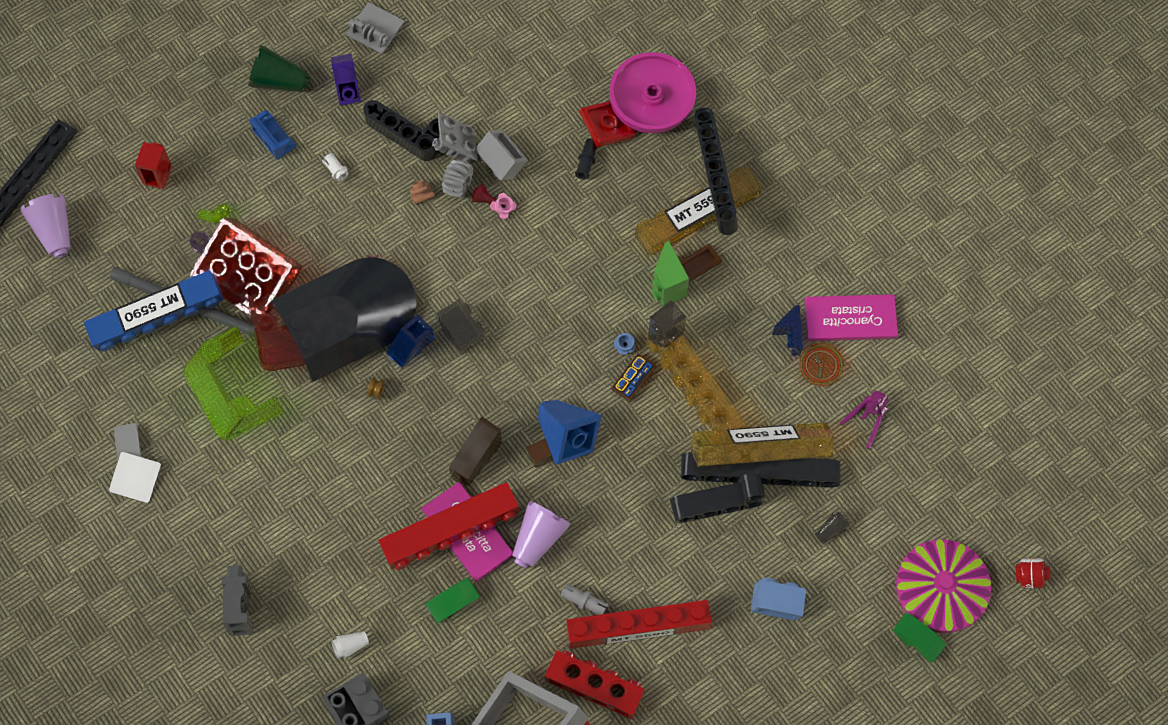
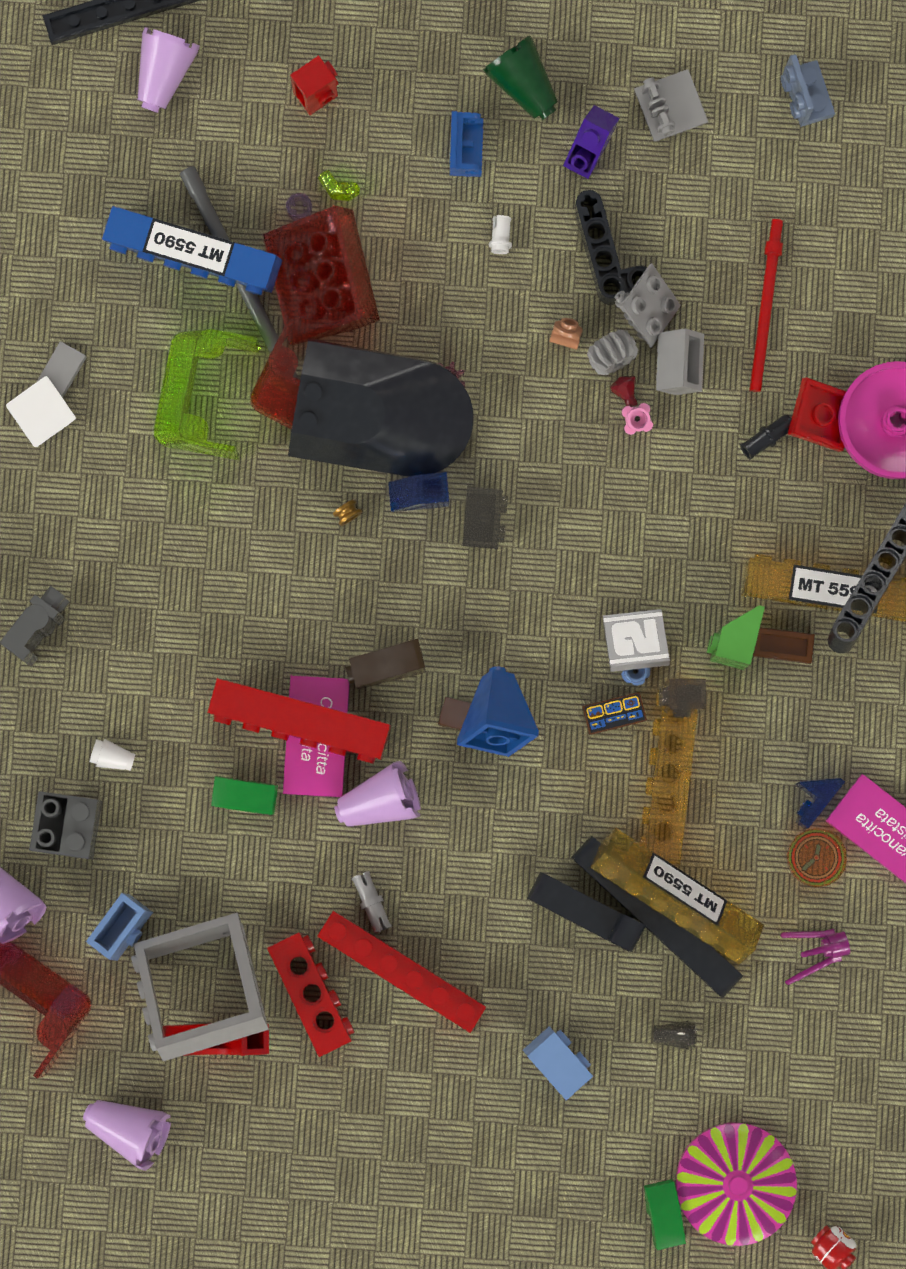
camera: 40 degrees right, 15 degrees up
(502, 60) = (773, 250): none -> red bar
(610, 325) = (636, 640): none -> tile

